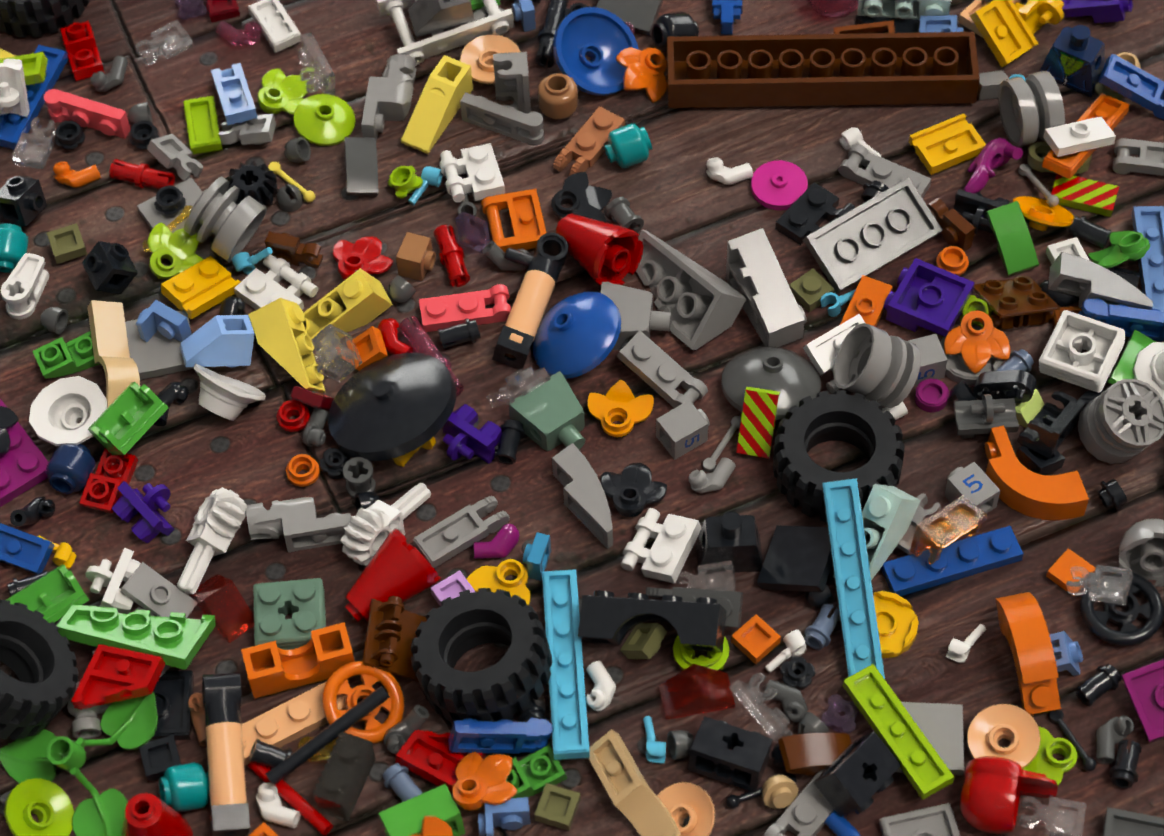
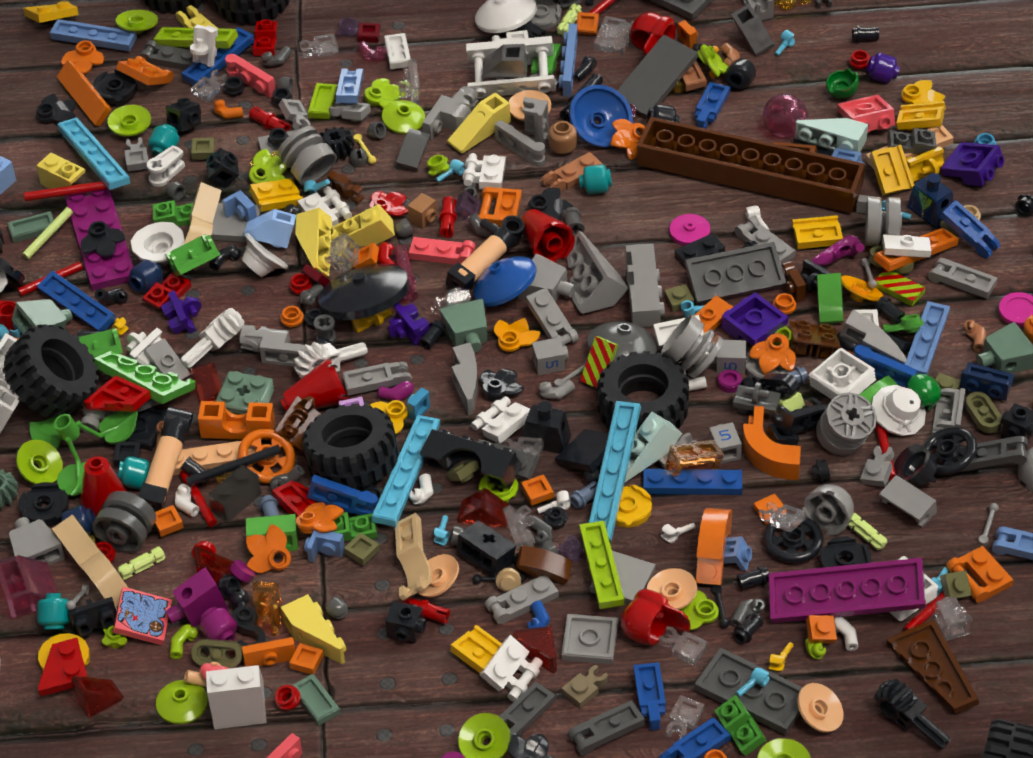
camera: 20 degrees right, 10 degrees down
(459, 333) = (430, 264): black pin -> none
(727, 175) = (657, 215): white arm -> none
(858, 775) = (561, 580): black brick -> none

